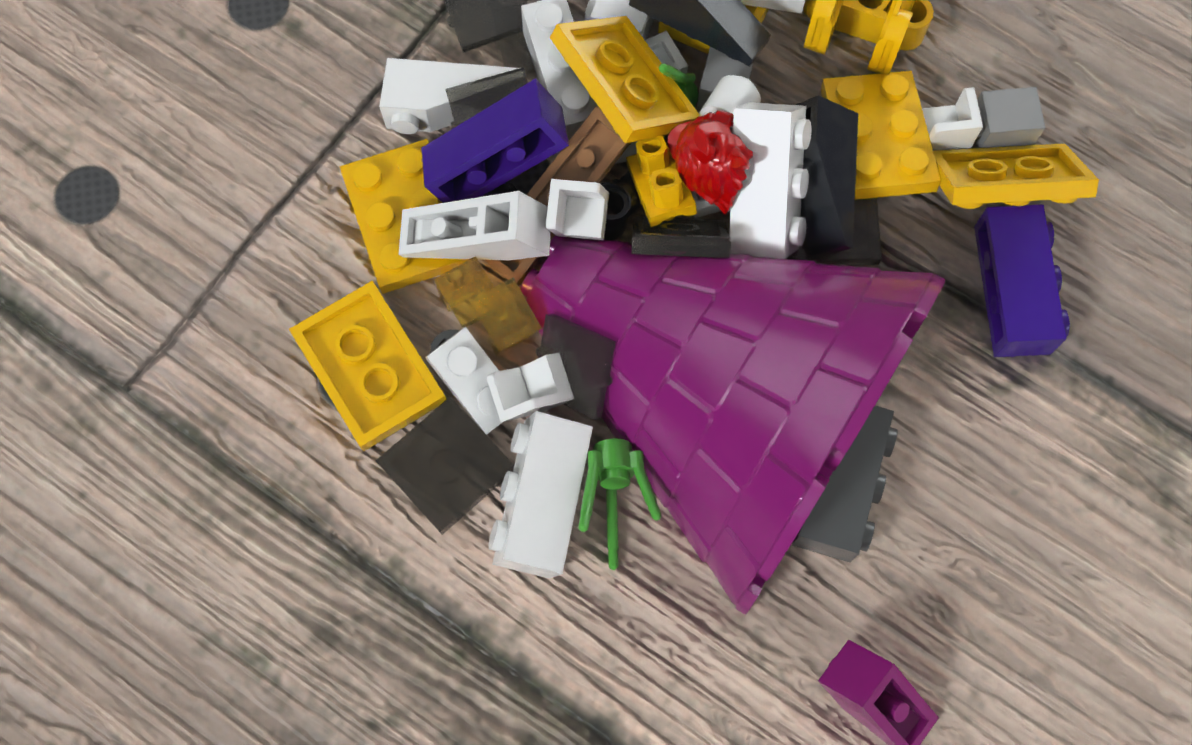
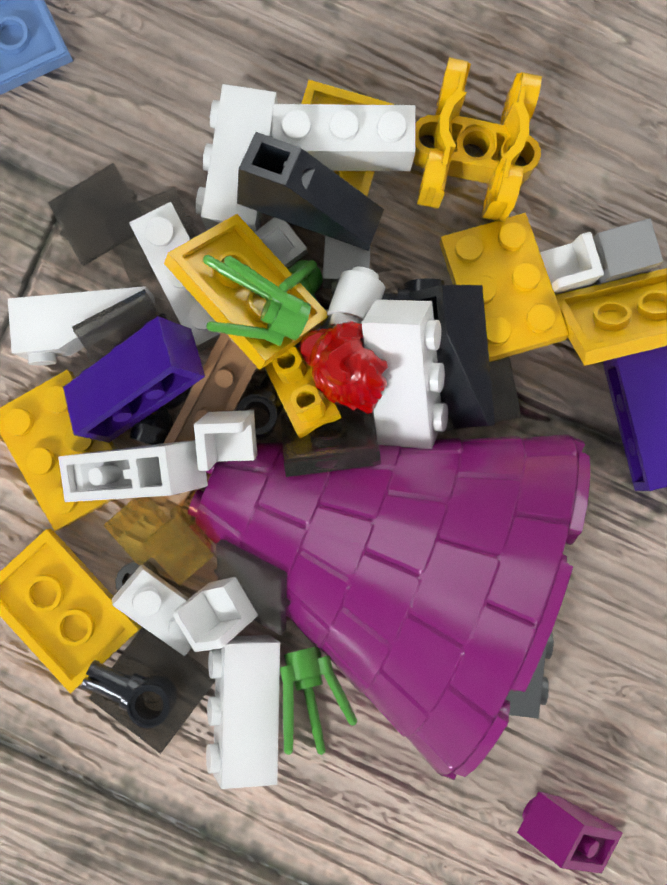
camera: 15 degrees left, 15 degrees up
(425, 450) = (129, 692): none -> black pin
(657, 92) = (282, 311): none -> bright green plant

